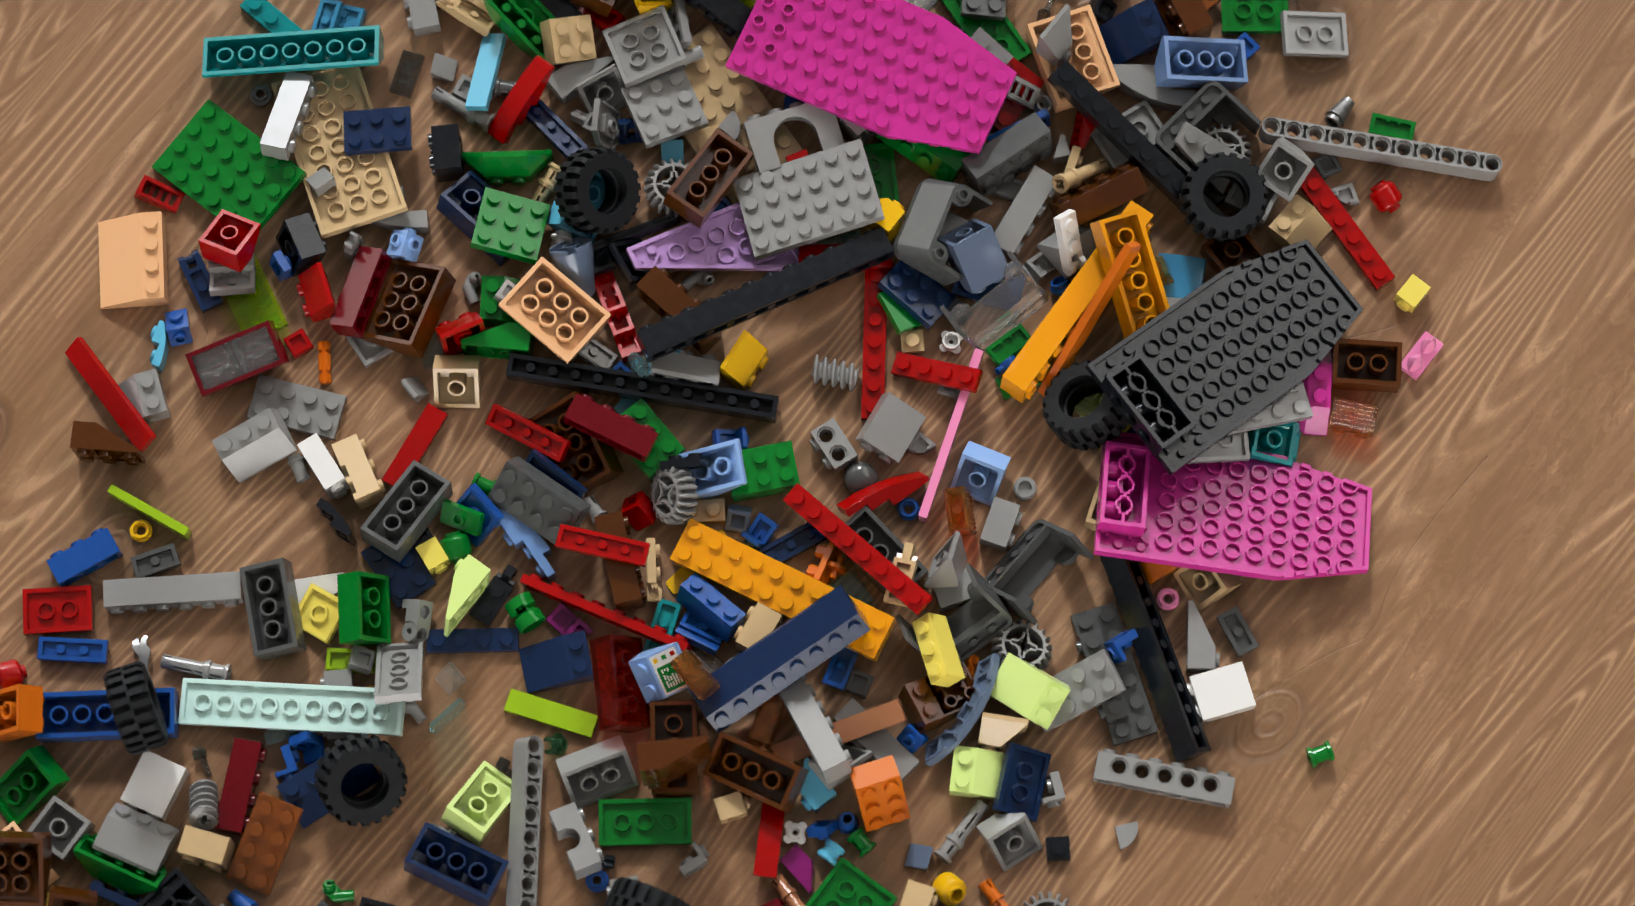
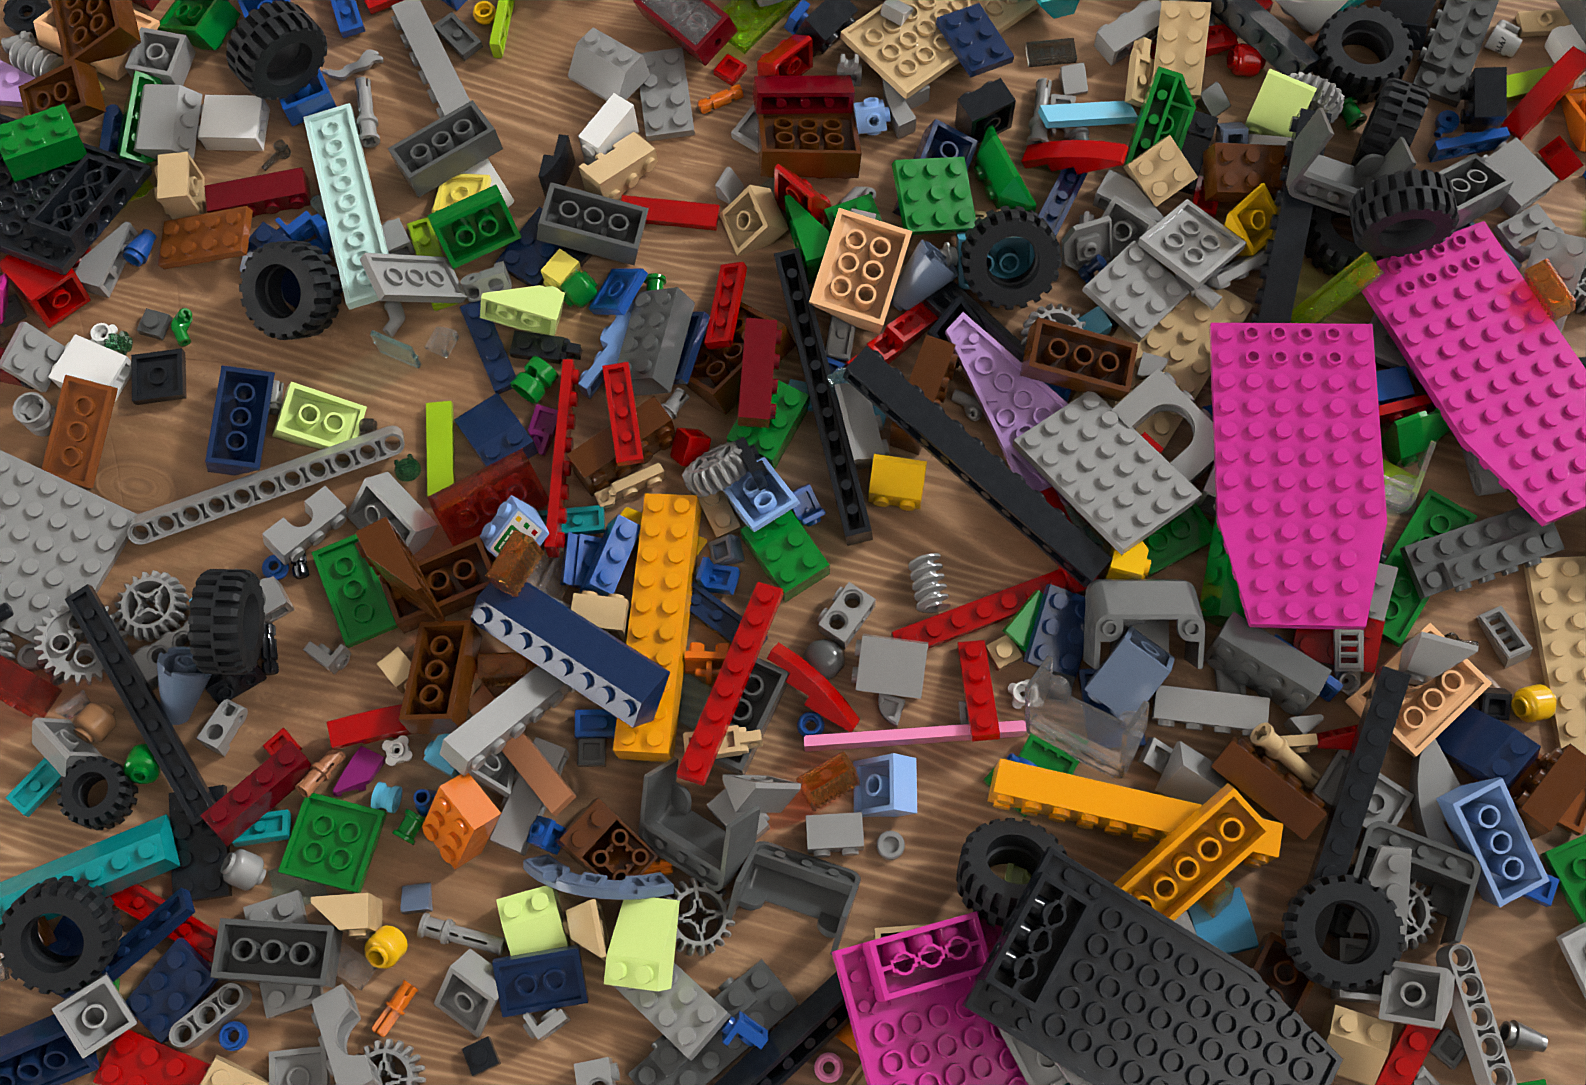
camera: 70 degrees right, 5 degrees down
(203, 804) = (222, 166): light grey piece -> none
(361, 659) = (423, 244): light grey plate -> none
(462, 517) = (609, 279): green plate -> none
(822, 829) = (407, 776): blue plate -> none
(938, 650) = (650, 818): light yellow brick -> none
(1059, 285) = (1144, 784): blue plate -> none
(1069, 242) = (1197, 771): white plate -> none
(1092, 312) = (1128, 830): orange tile -> none

